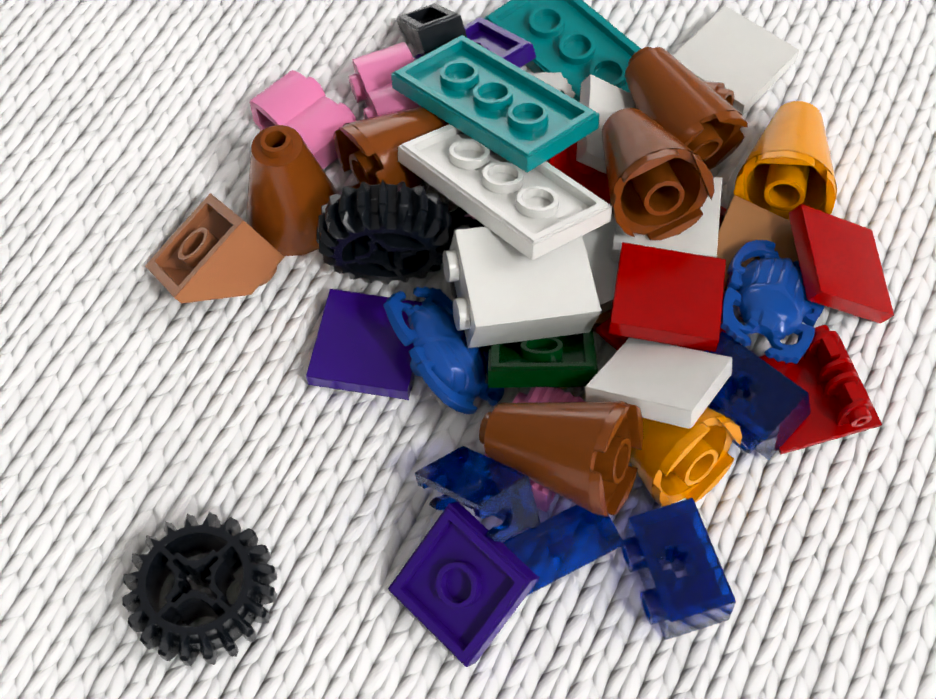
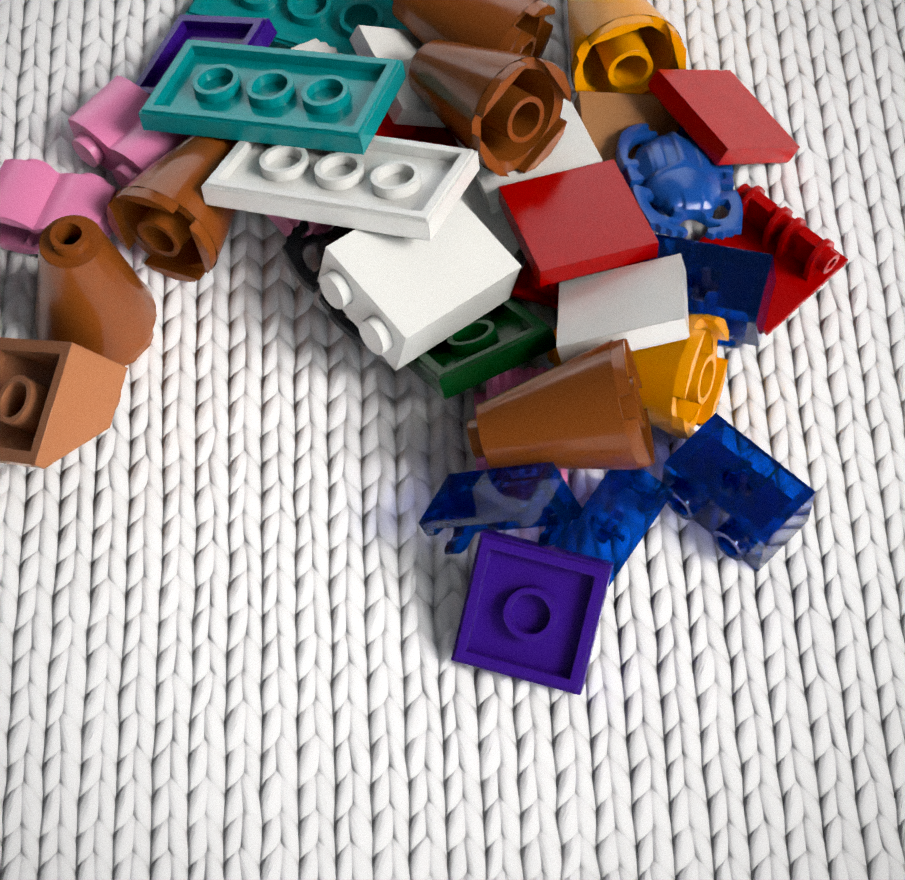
camera: 30 degrees left, 0 degrees up
(227, 553) = (202, 740): black gear -> none
(359, 348) = (272, 421): dark purple tile -> none
(384, 232) = (233, 289): black gear -> none
(431, 27) = (137, 49): black slope -> none
(441, 351) = (368, 385): blue shield -> none

